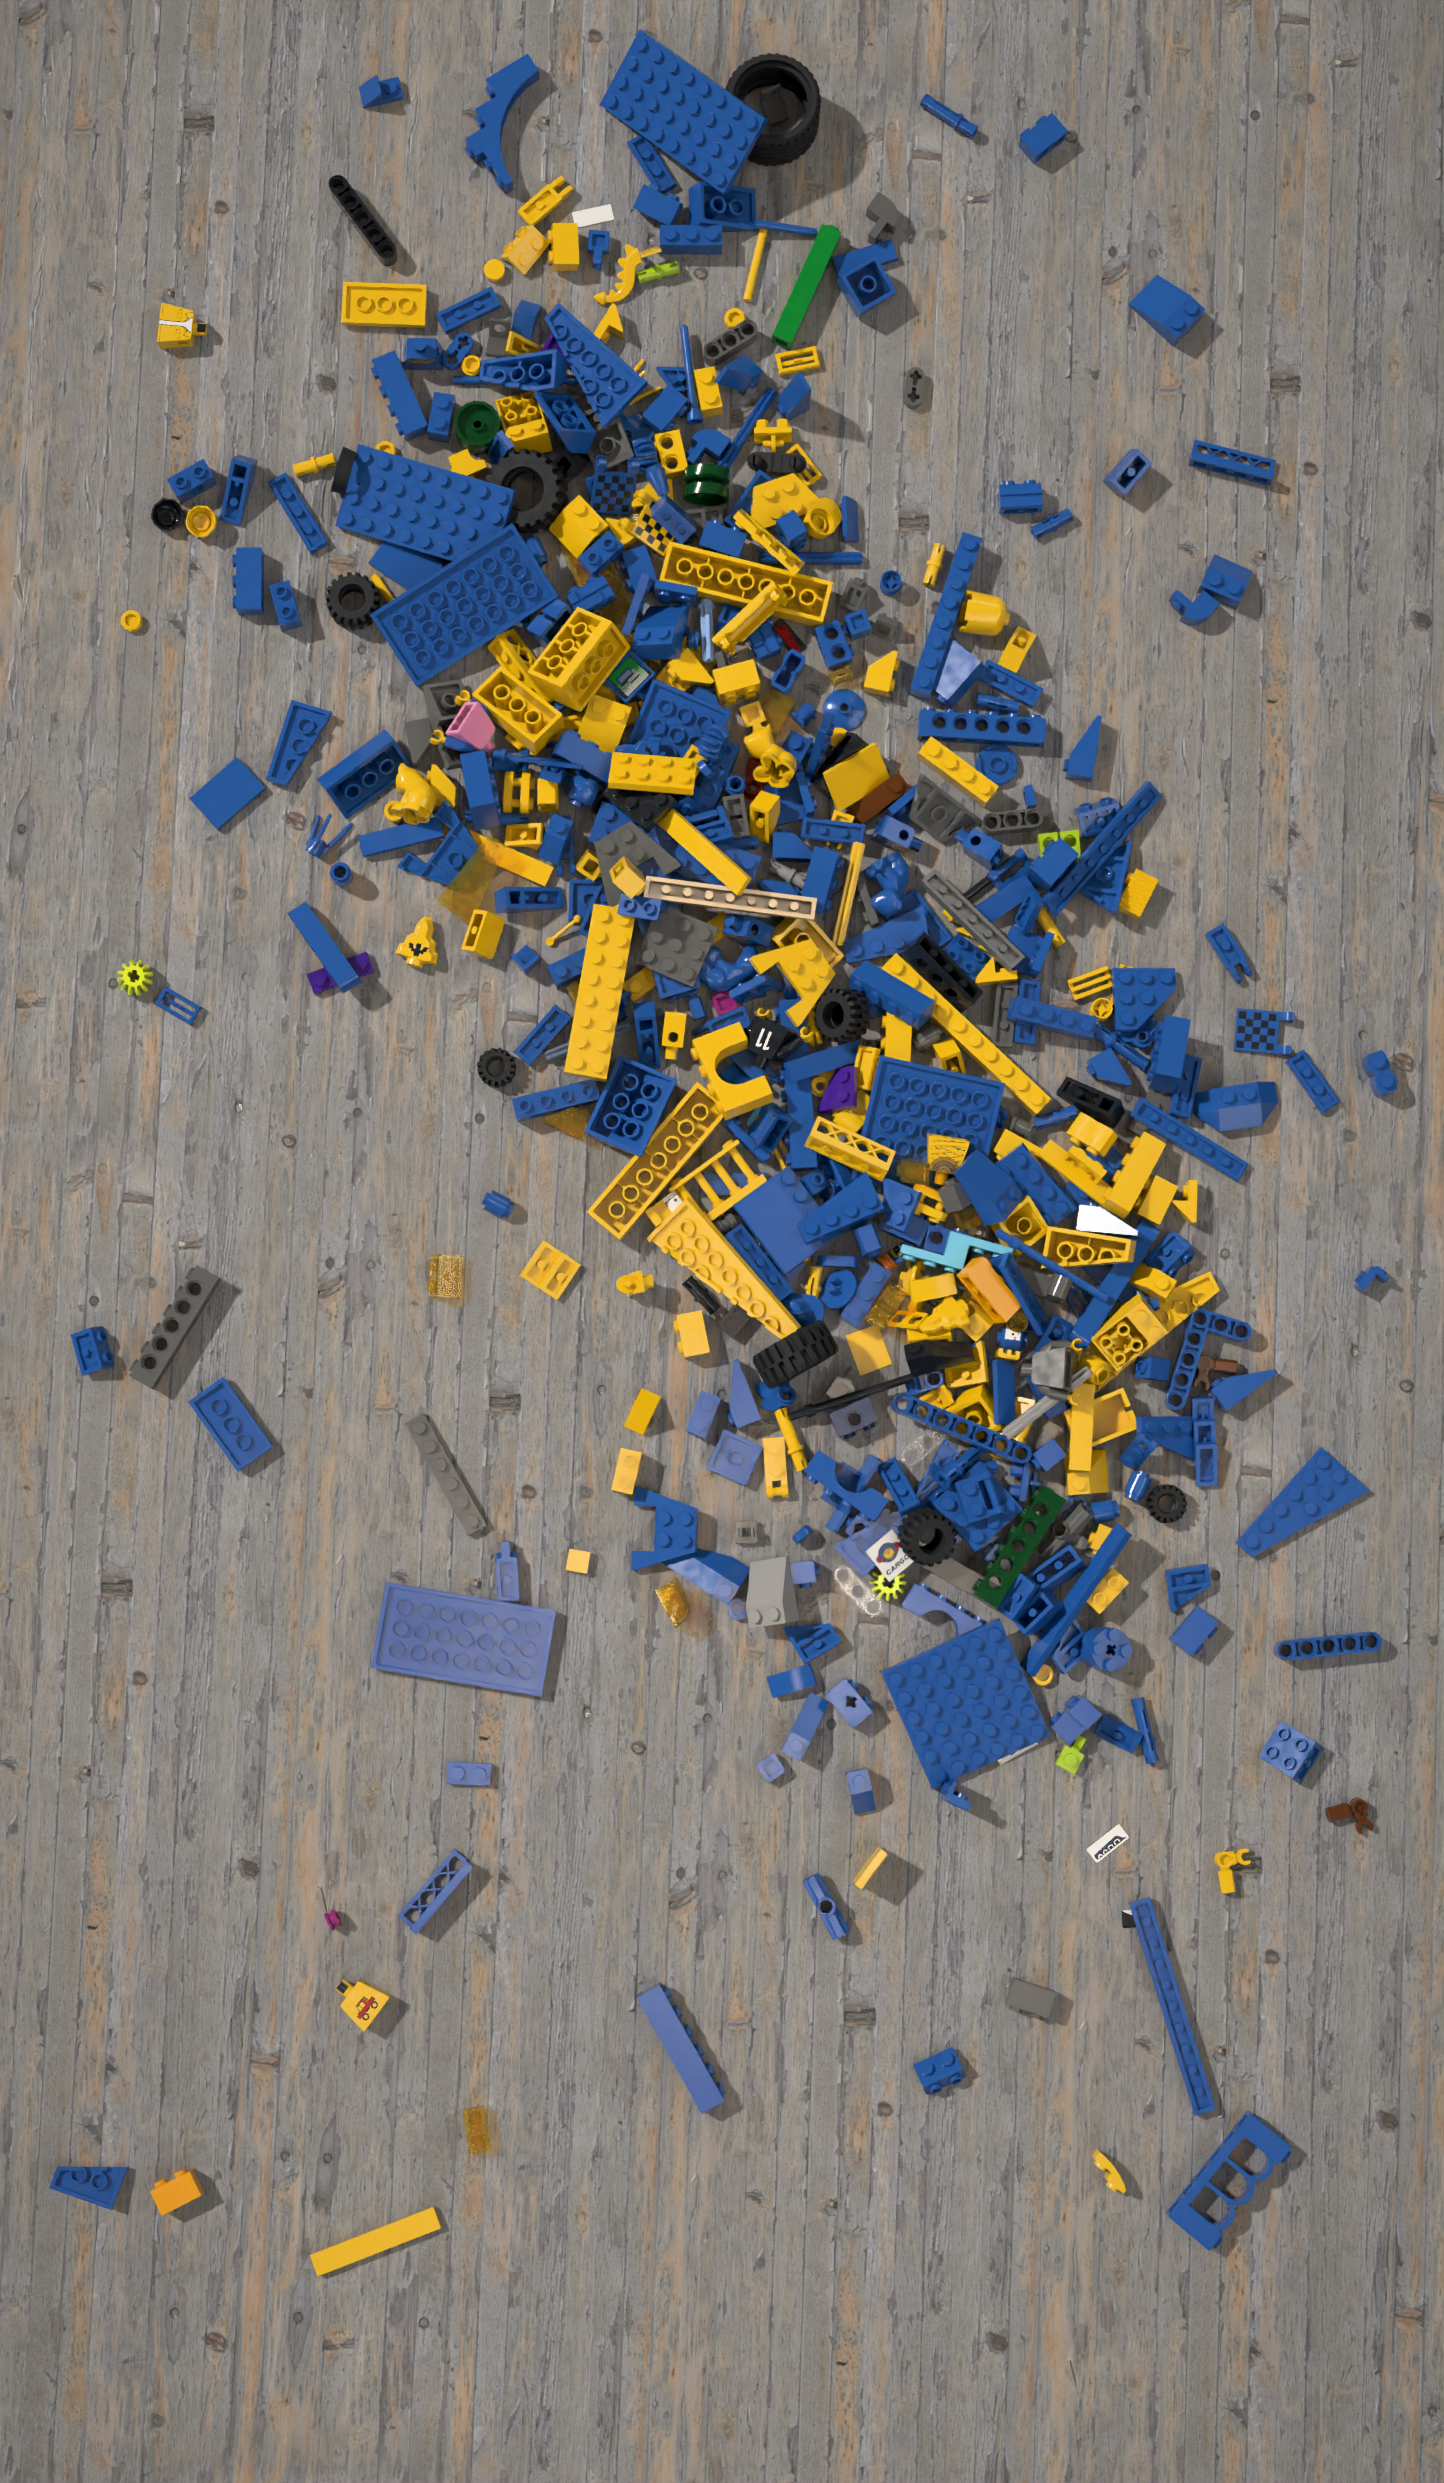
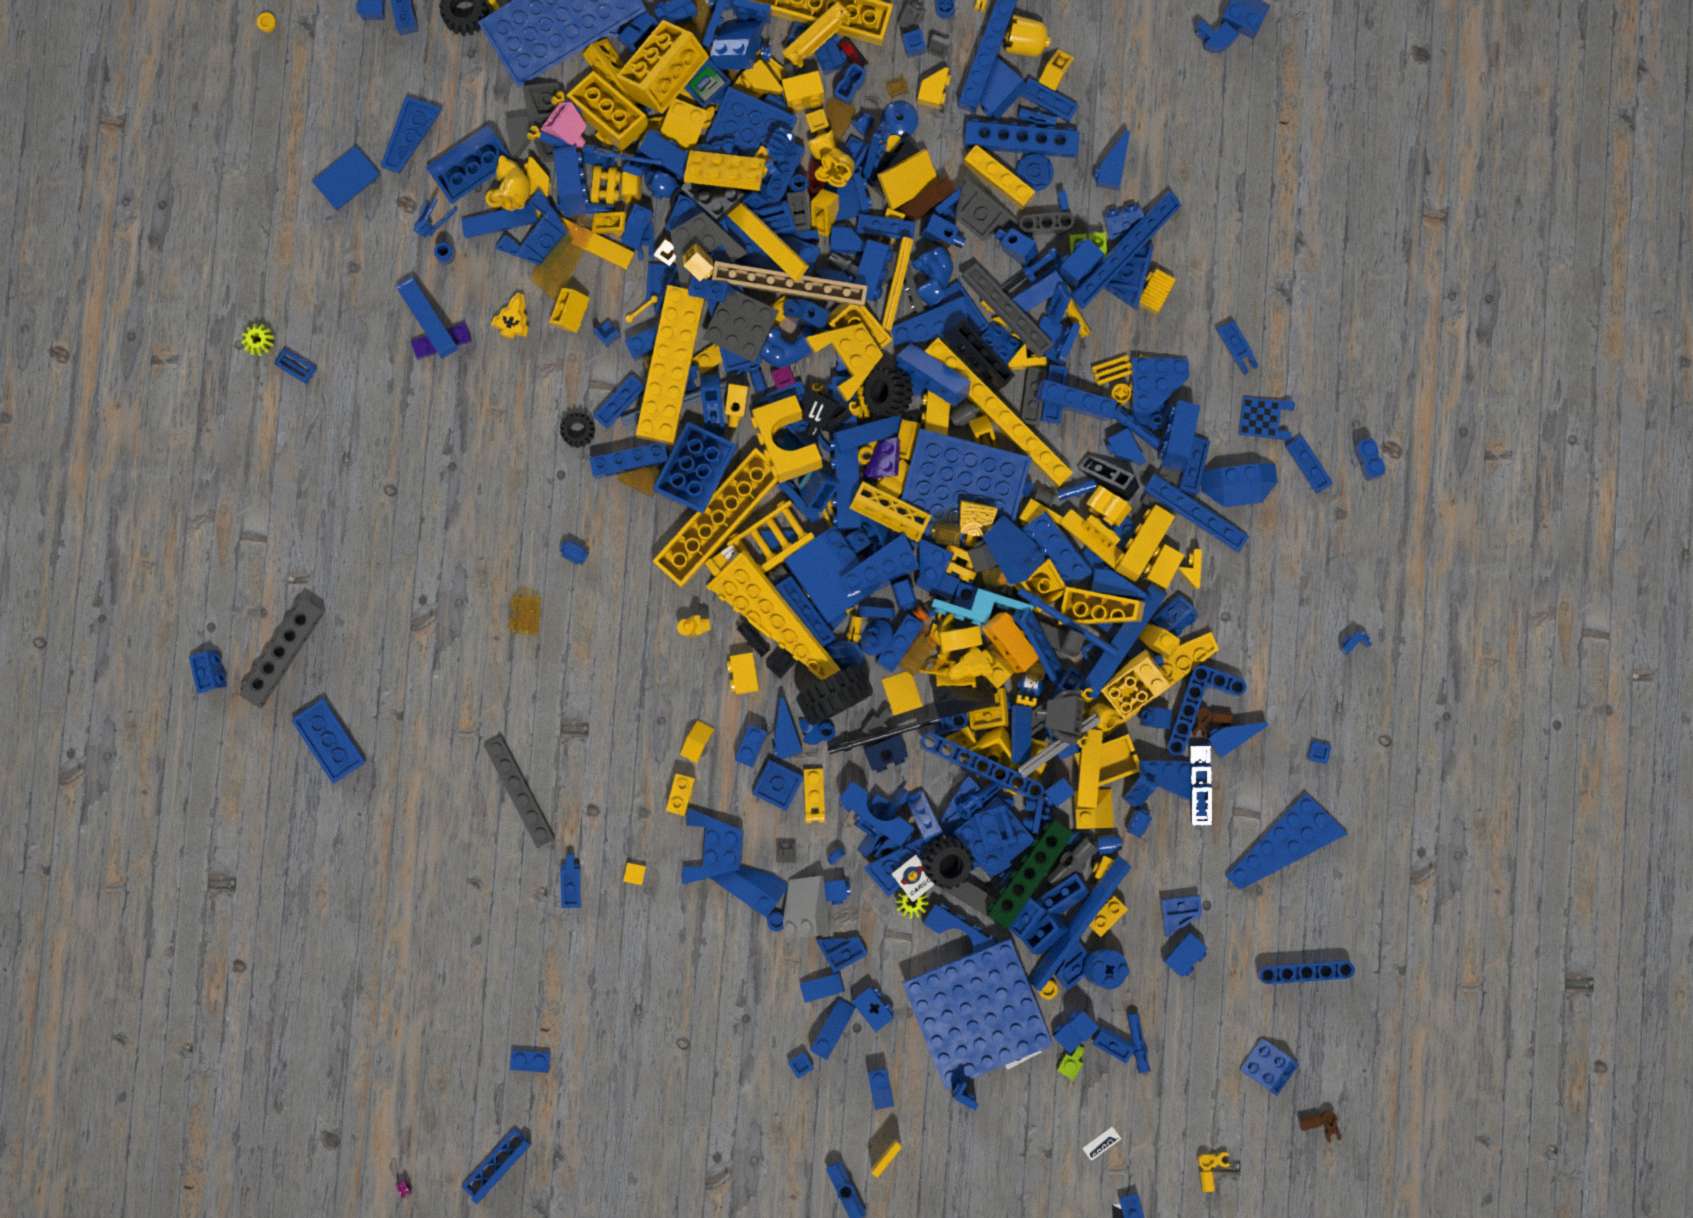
camera: 10 degrees right, 0 degrees up
(463, 1639) = (529, 940): plate -> none
(528, 899) = (610, 280): blue slope -> none
(550, 1270) = (618, 612): yellow slope -> none
(674, 1601) = (719, 913): clear yellow brick -> none
(706, 623) = (779, 44): light blue axle -> none
(755, 988) = (811, 365): blue wing -> none
(791, 1439) = (829, 770): yellow pin -> none
(829, 646) = (888, 62): blue brick -> none
(1153, 1503) = (1153, 839): black tyre -> none
(1334, 1401) = (1319, 752): none -> blue tile

